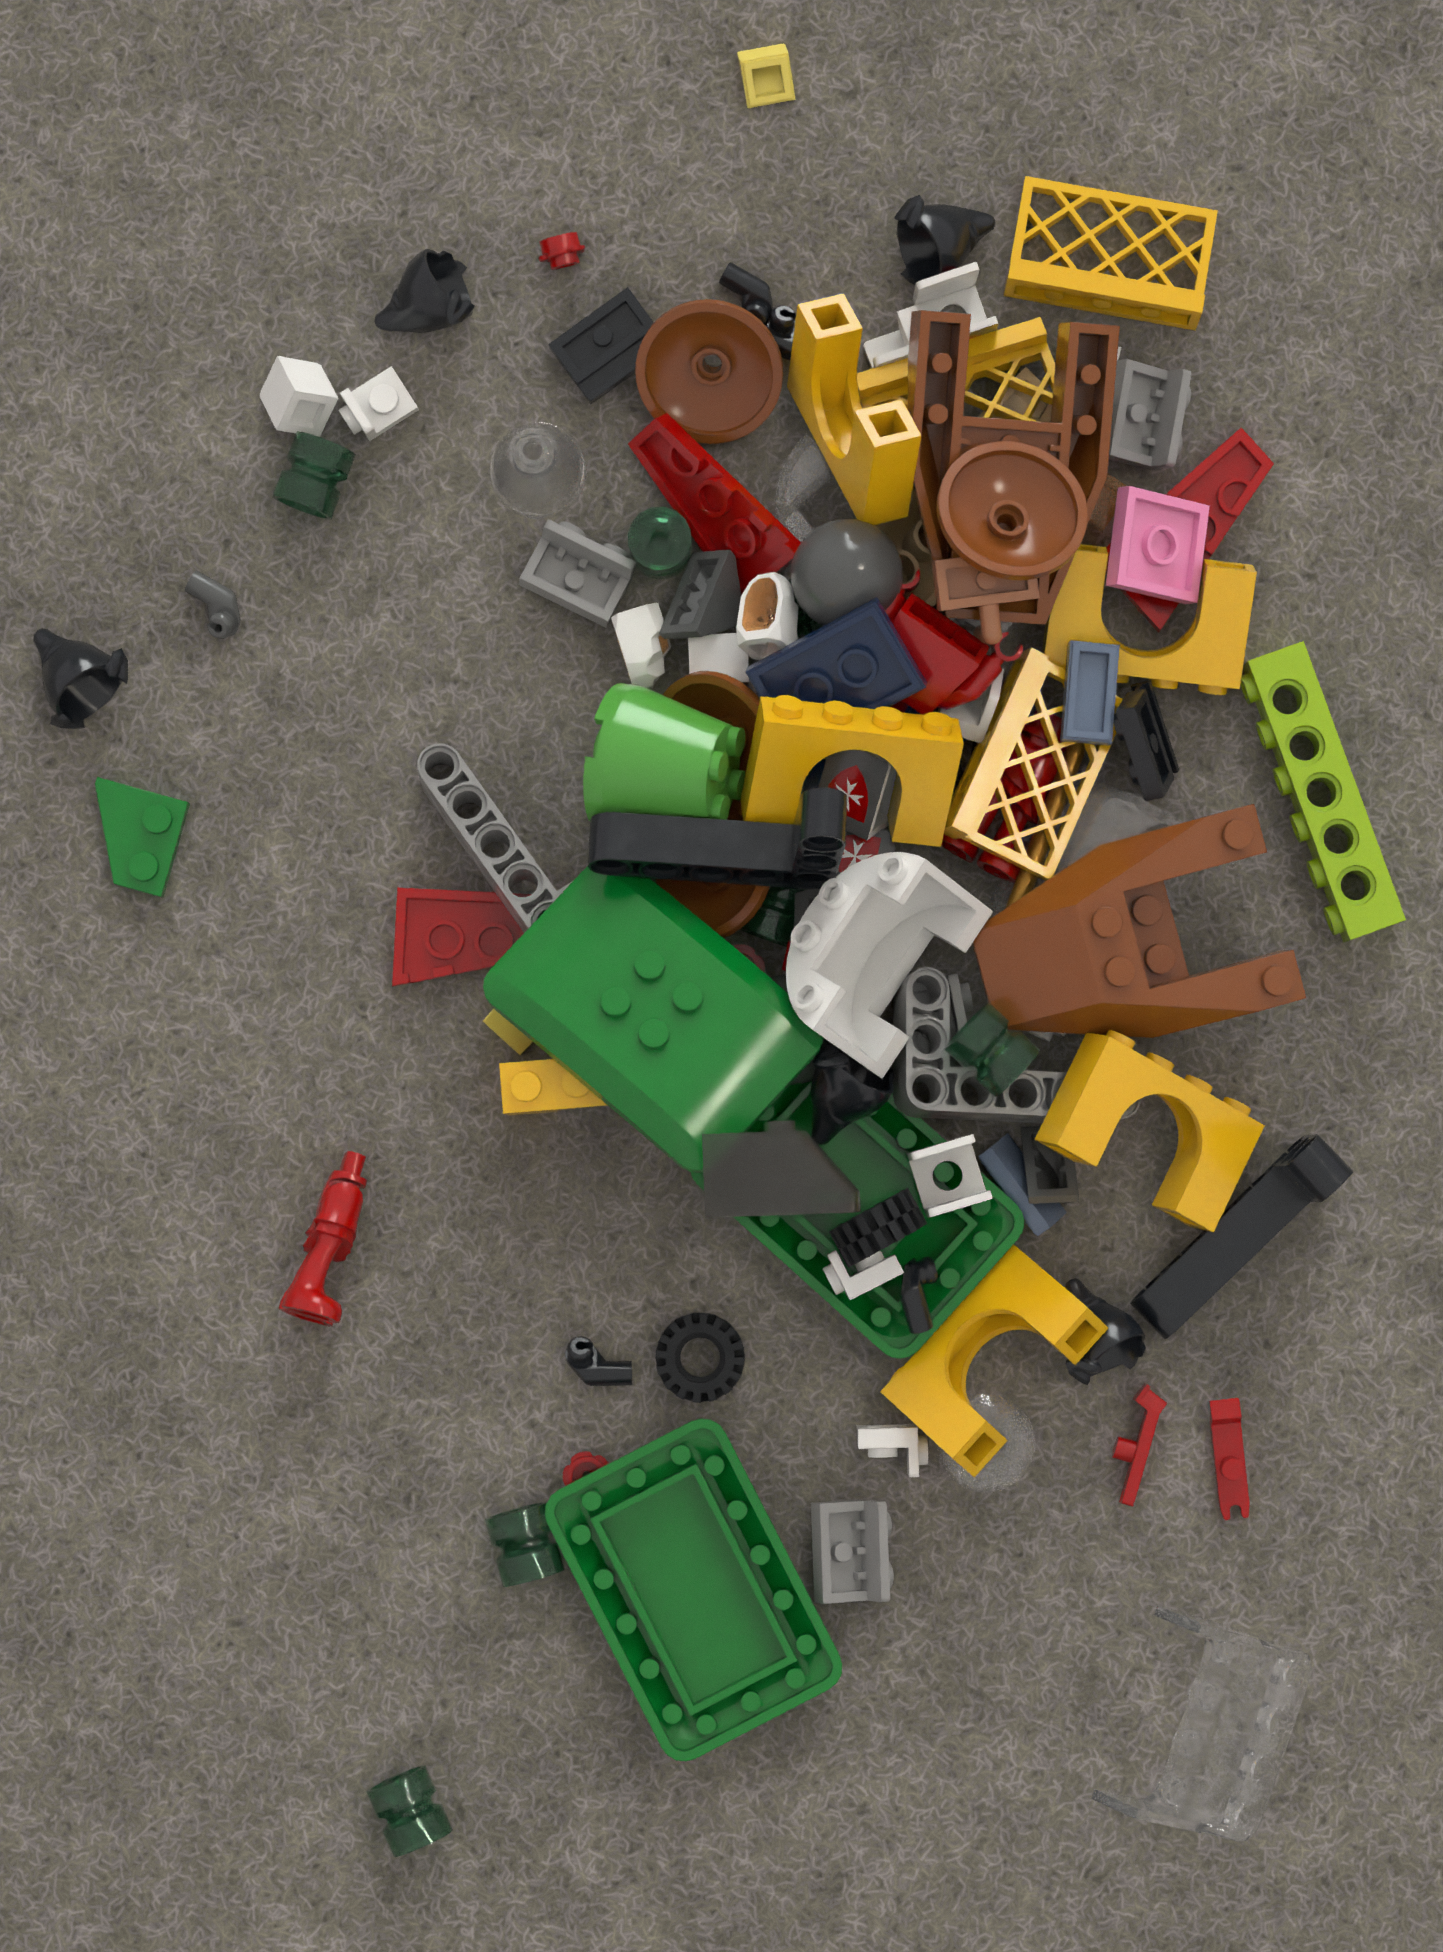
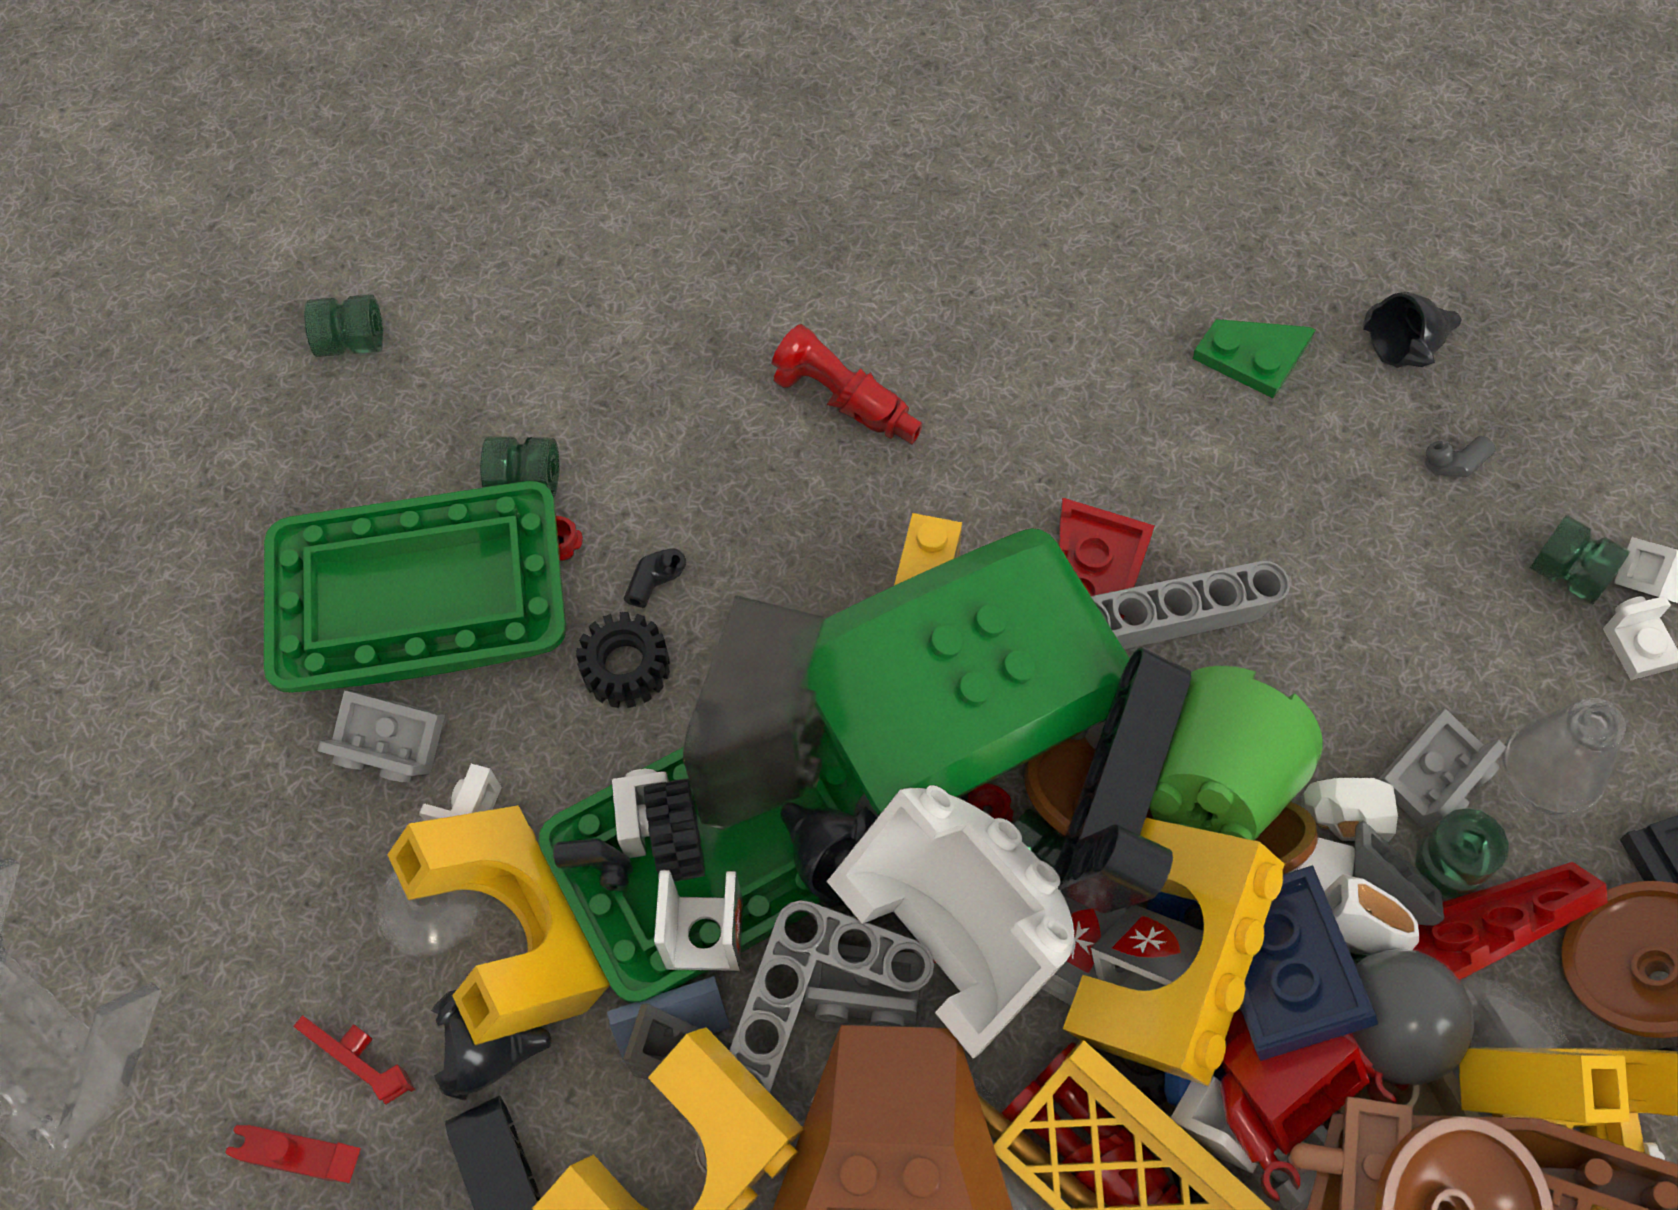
camera: 110 degrees right, 25 degrees down
(992, 1049) = (819, 1003): clear green wheel -> none

